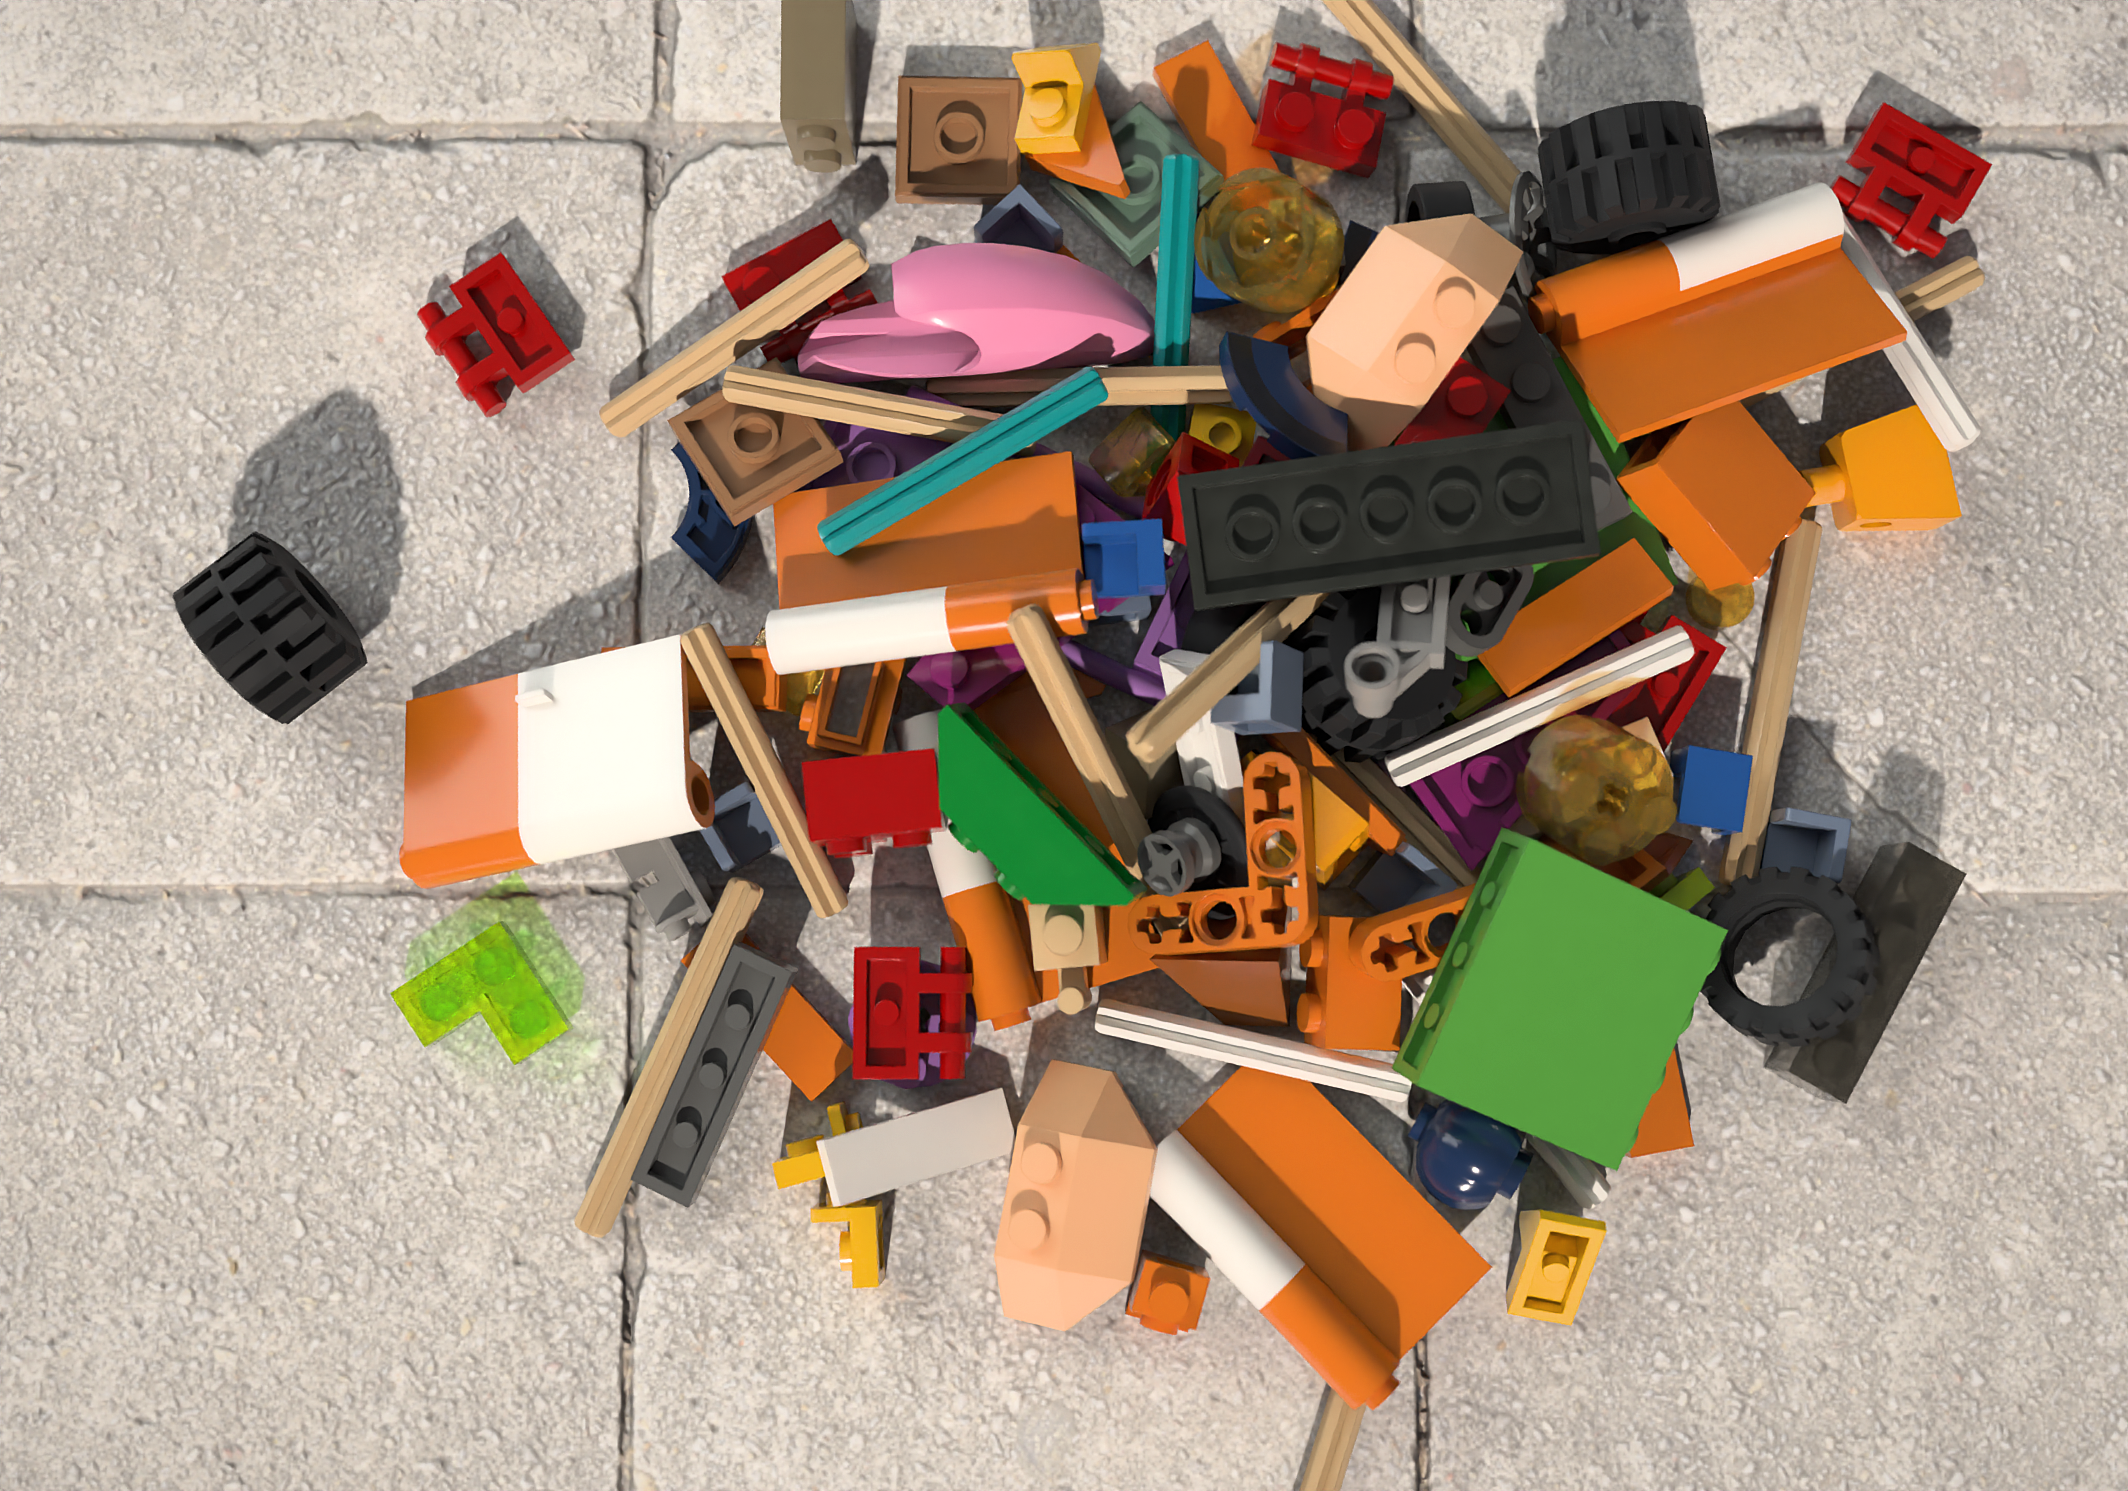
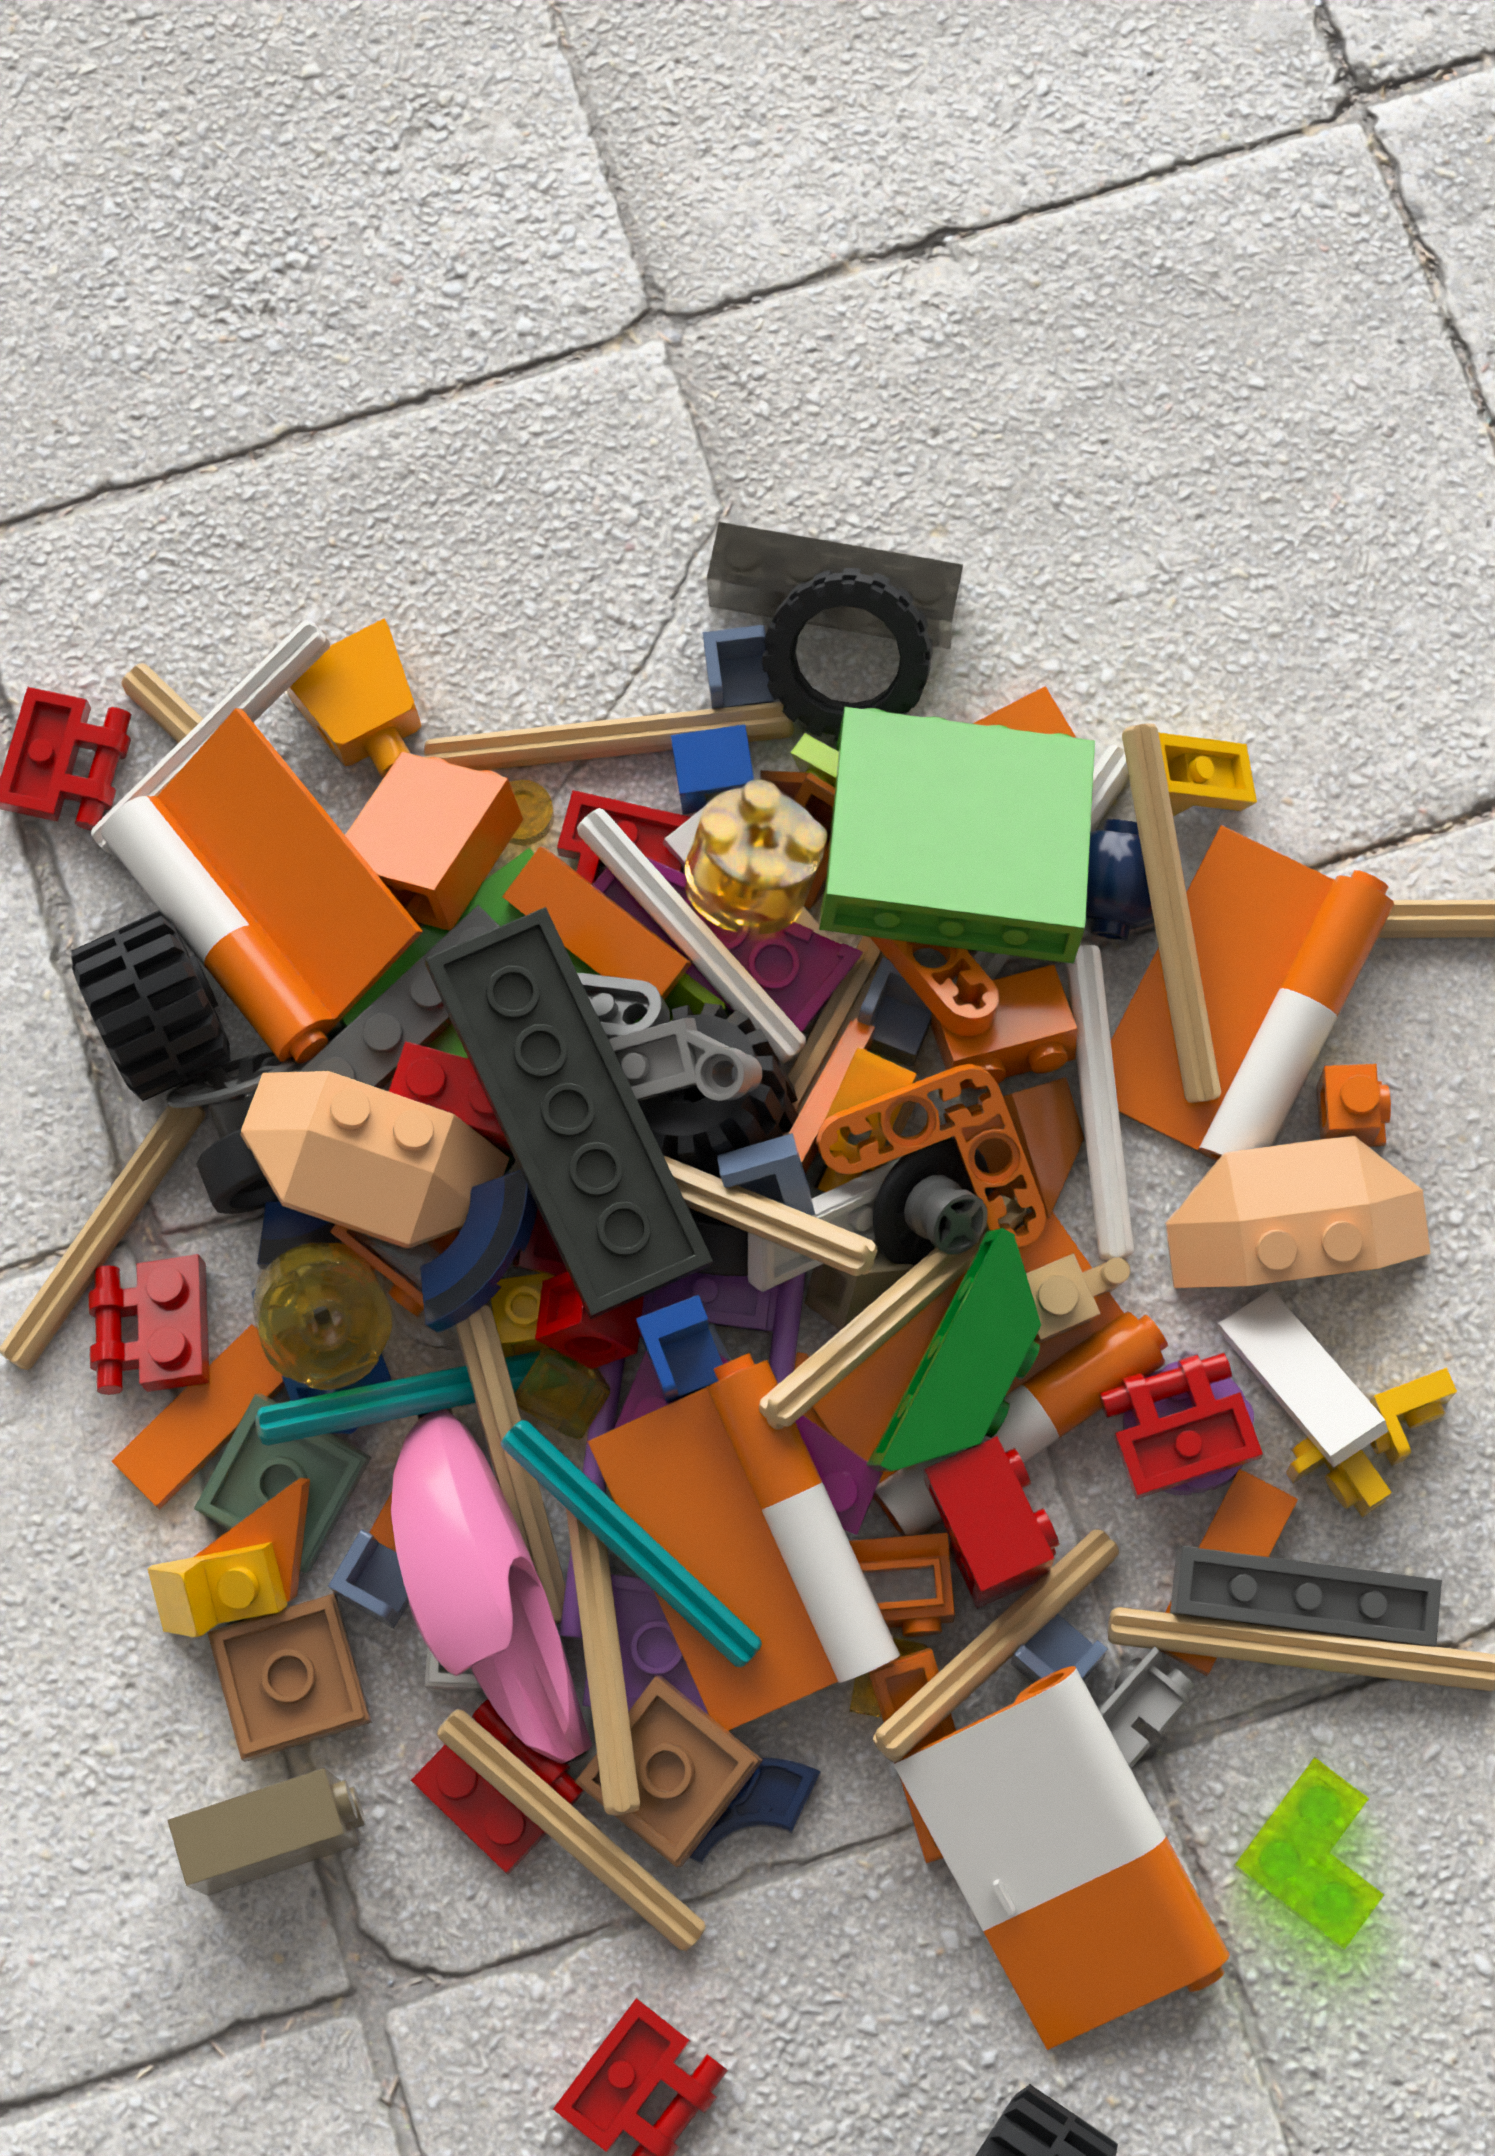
camera: 100 degrees left, 10 degrees down
(1418, 1183) = (1171, 913): none -> tan axle

